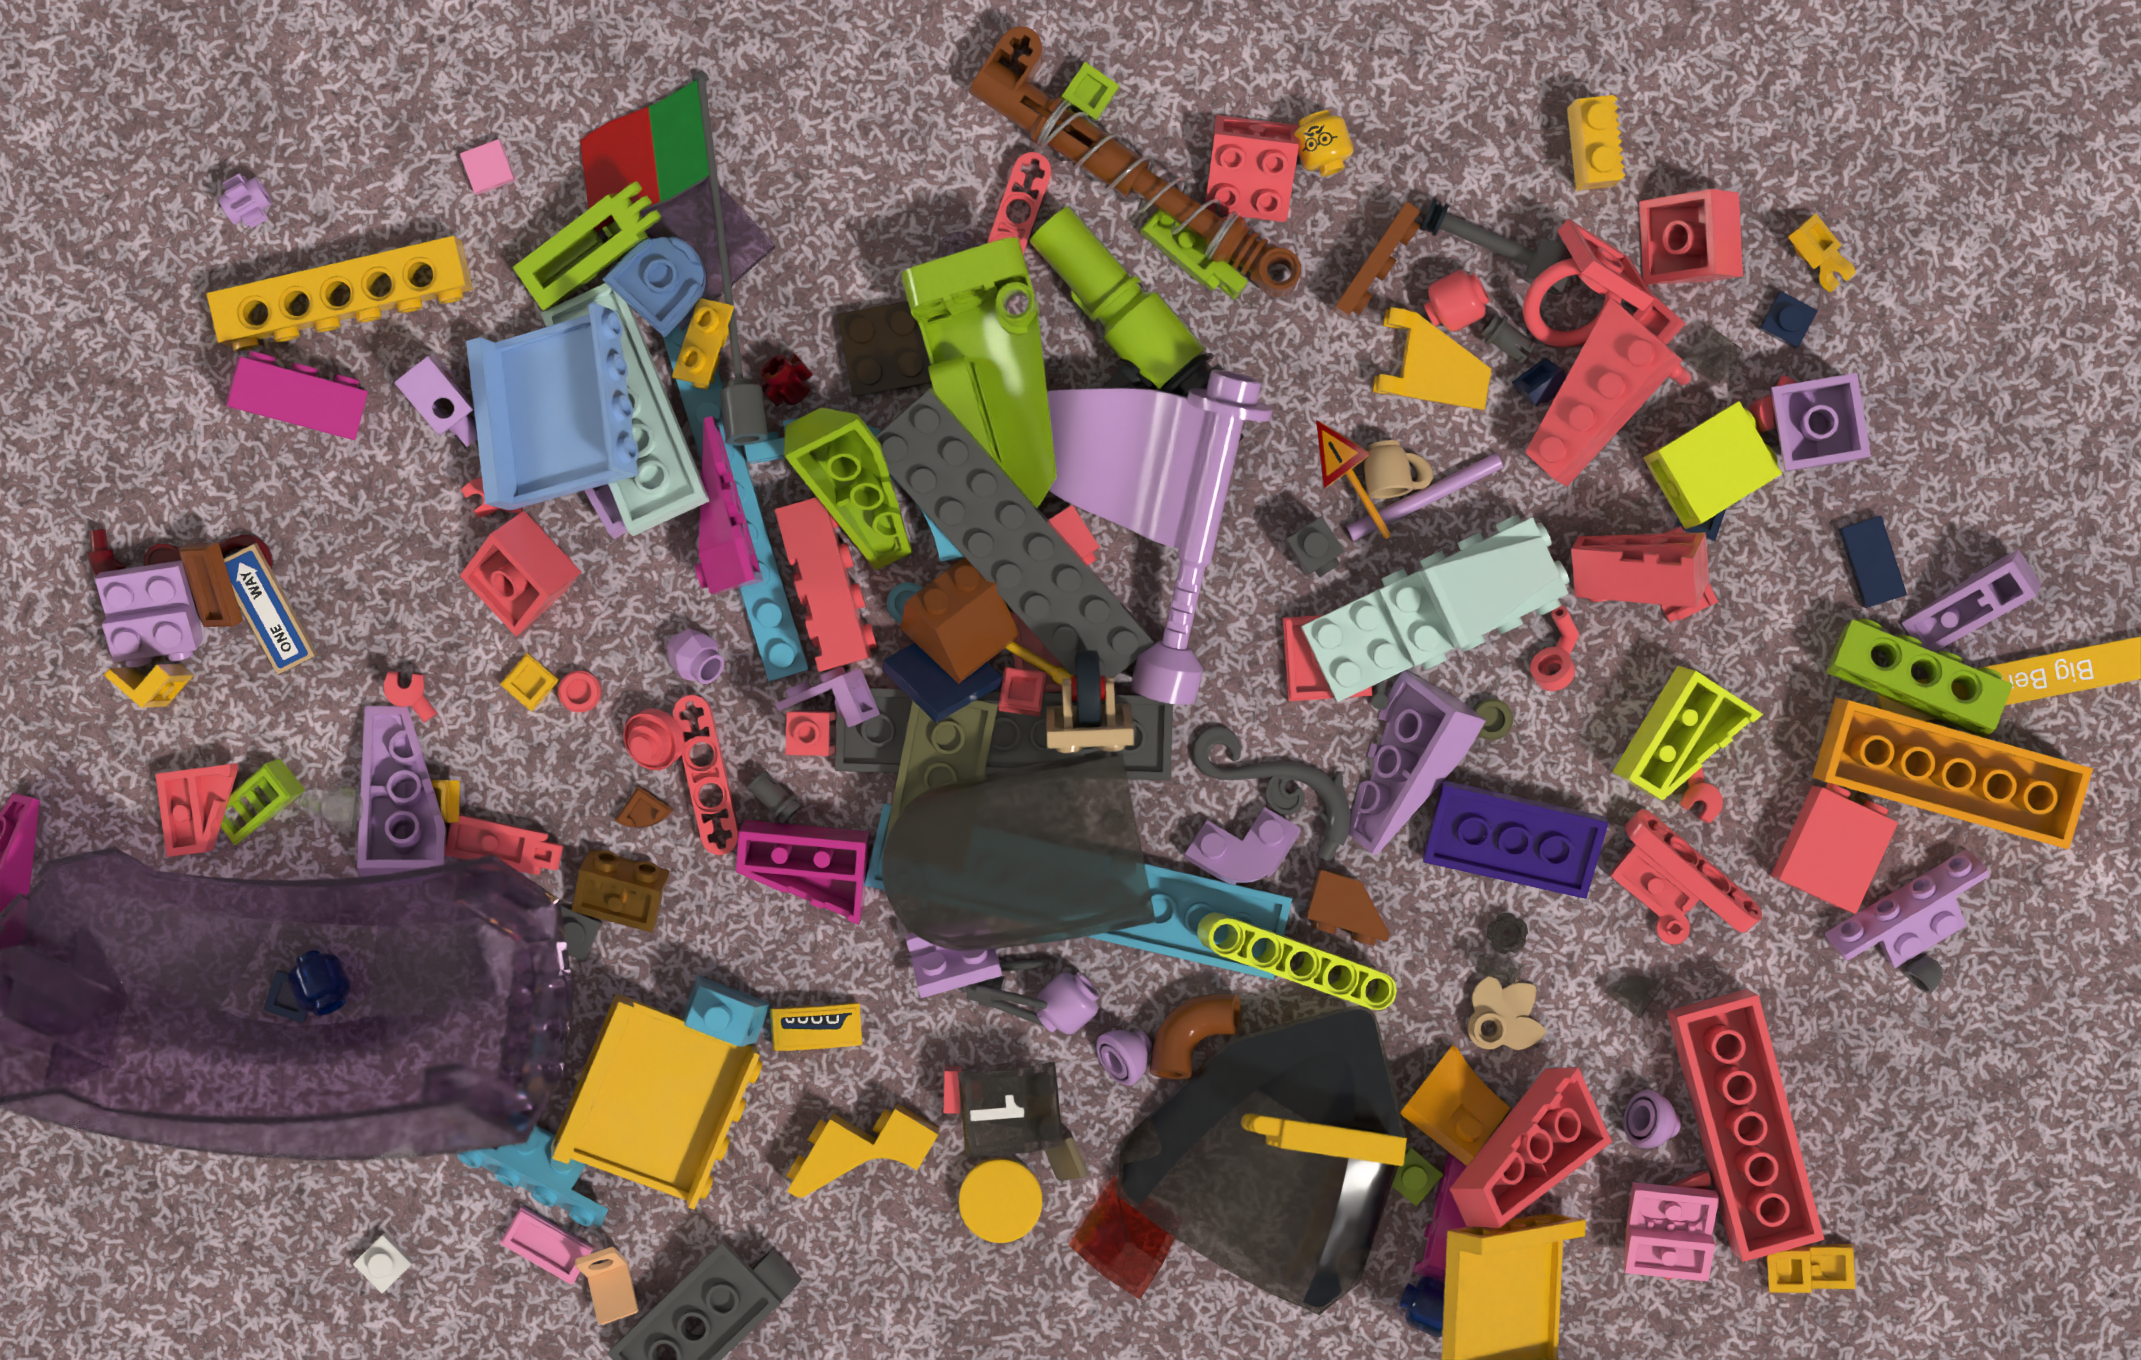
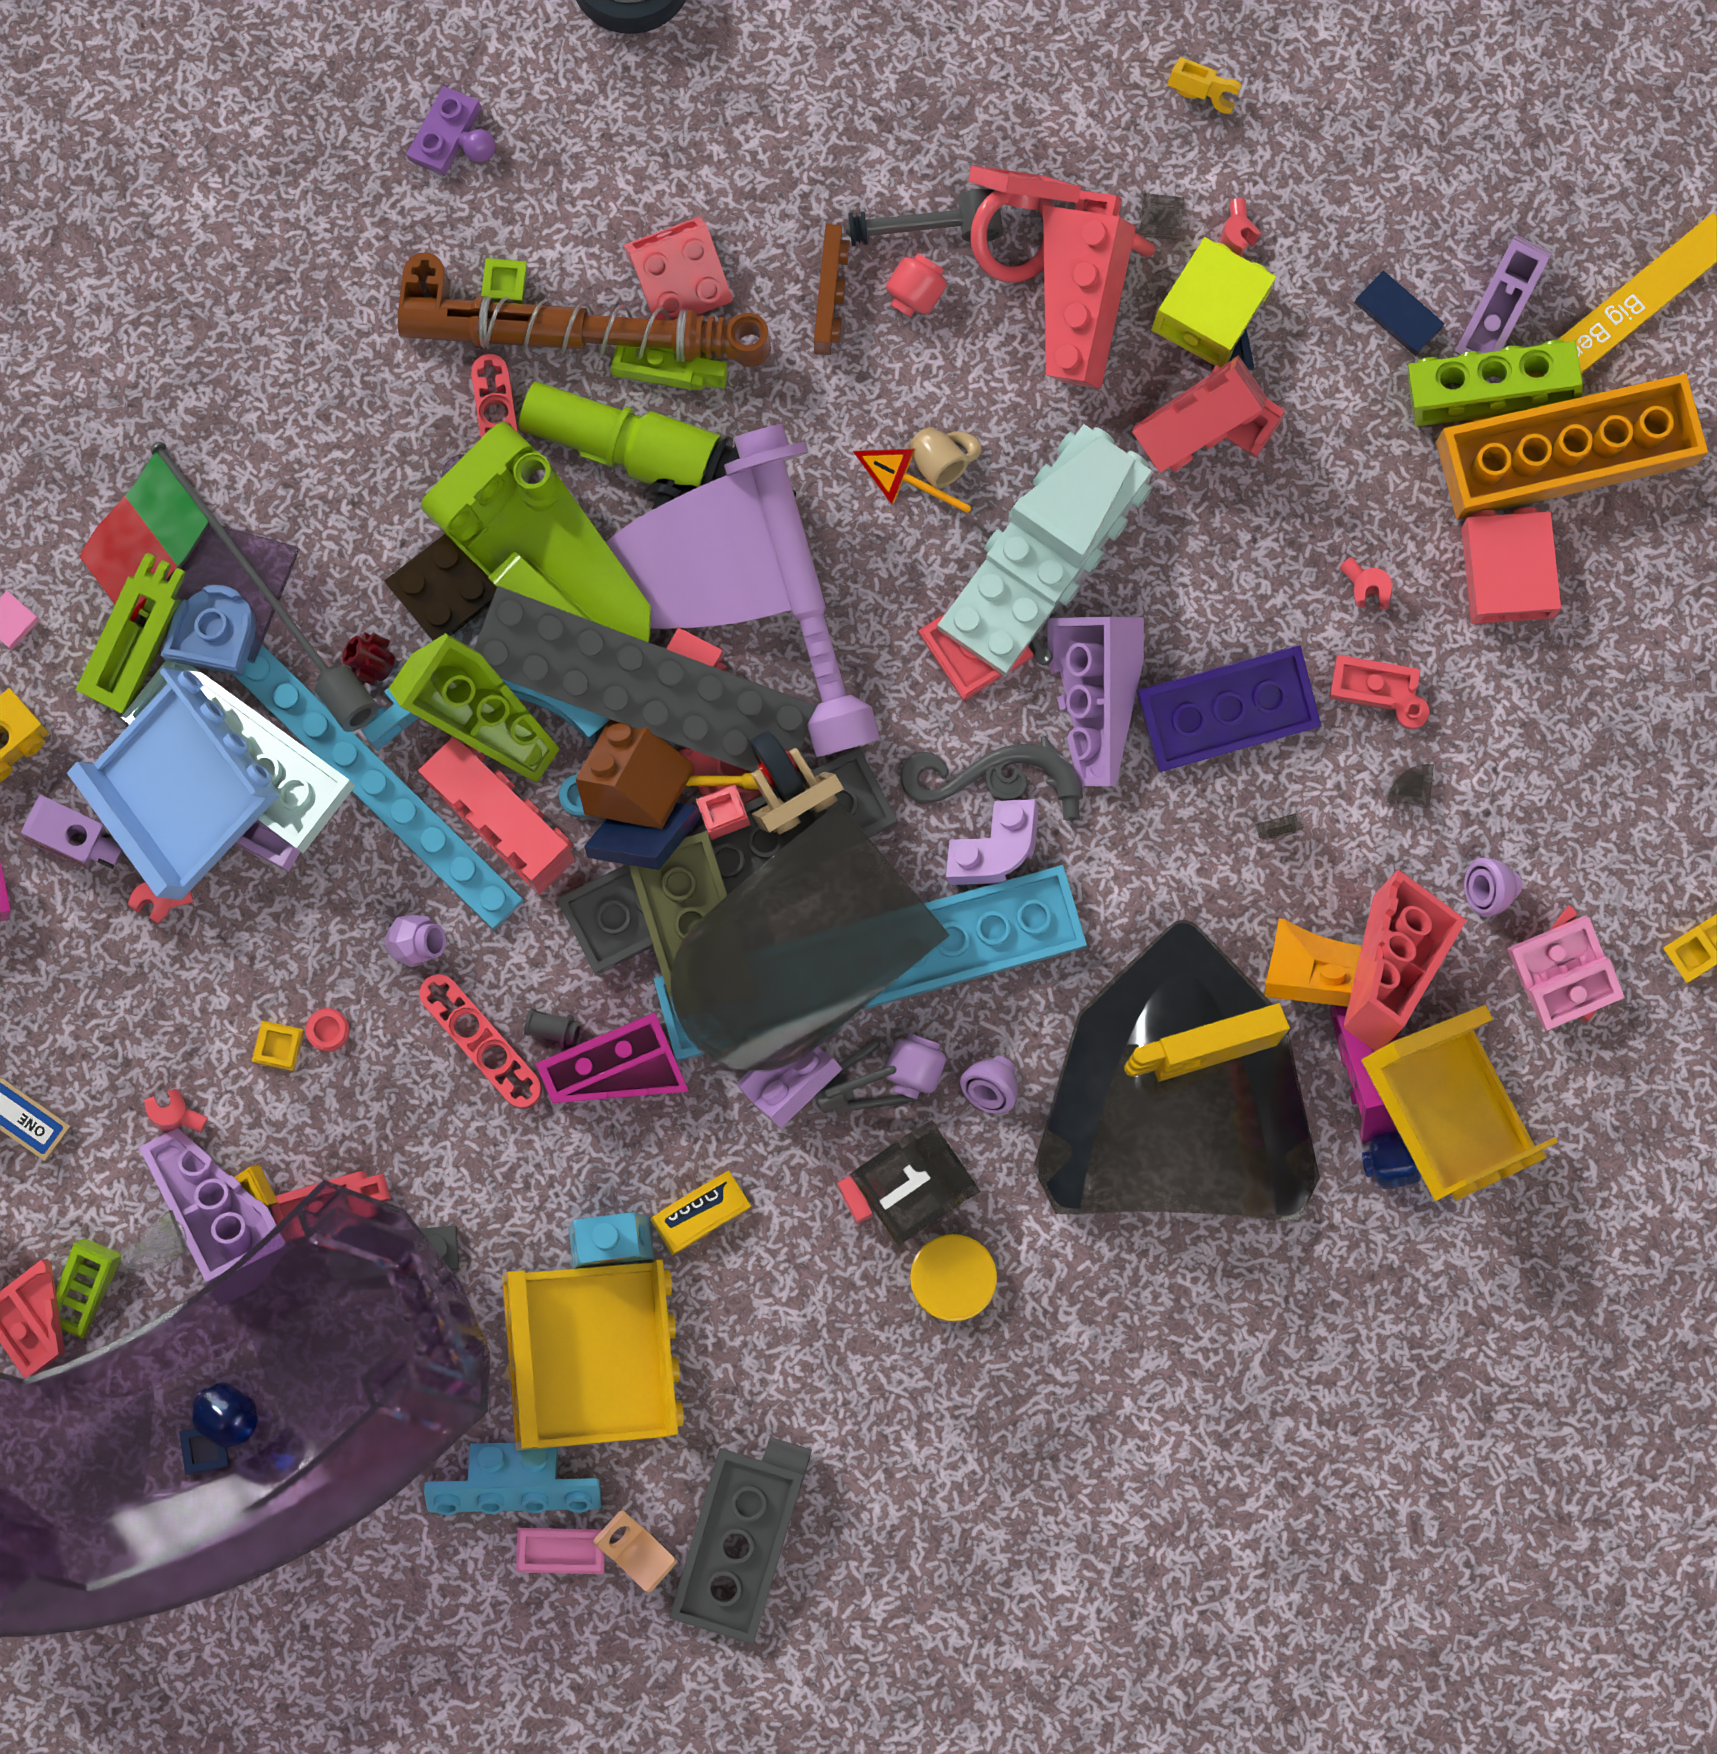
camera: 25 degrees left, 10 degrees down
(383, 1262) = (417, 1651): white plate -> none
(519, 572) = (218, 952): coral slope -> none
(620, 890) = (457, 1186): pearl gold bracket -> none
(643, 810) = (440, 1105): dark orange tile -> none
(653, 739) = (416, 1033): coral plate -> none
(702, 343) = (278, 661): yellow hinge -> none
(724, 535) = (388, 818): dark pink wedge -> none
(809, 732) = (553, 944): coral window -> none
(843, 1146) = (783, 1307): yellow arch -> none
(851, 691) = (575, 896): lavender bracket -> none
(1066, 1159) = (991, 1207): dark tan slope -> none
(1122, 1242) = (1085, 1252): clear red slope -> none
(1189, 1025) = (1034, 1030): dark orange cylinder -> none
(1313, 971) = (1081, 924): neon yellow beam -> none
(1315, 548) = (910, 553): dark grey brick -> none
(1323, 143) = (728, 216): yellow head -> none
(1345, 904) = (1113, 845): dark orange slope -> none
(1415, 1177) = (1313, 1054): lime plate -> none
(1427, 495) = (984, 462): lavender bar -> none
(1433, 366) = (927, 351): yellow flag -> none
(1497, 717) = (1156, 618): olive tile -> none
(1503, 944) = (1271, 785): clear smoke plate -> none
(1505, 337) = (977, 294): dark grey pin -> none
(1509, 1012) = (1311, 863): tan plate -> none
(1540, 382) = (1027, 315): dark blue plate -> none
(1556, 657) = (1177, 544): coral plate -> none
(1595, 142) = (959, 95): yellow brick -> none
(1681, 732) = (1318, 537): neon yellow wedge -> none
(1691, 237) = (1086, 129): coral slope -> none
(1693, 871) = (1400, 652): coral beam -> none
(1745, 1125) = (1575, 843): coral brick -> none
(1788, 319) = (1208, 154): dark blue plate -> none
(1820, 422) = (1285, 217): lavender slope -> none
(1912, 915) = (1614, 589): lavender bracket -> none
(1927, 971) = (1655, 627): dark grey hinge -> none

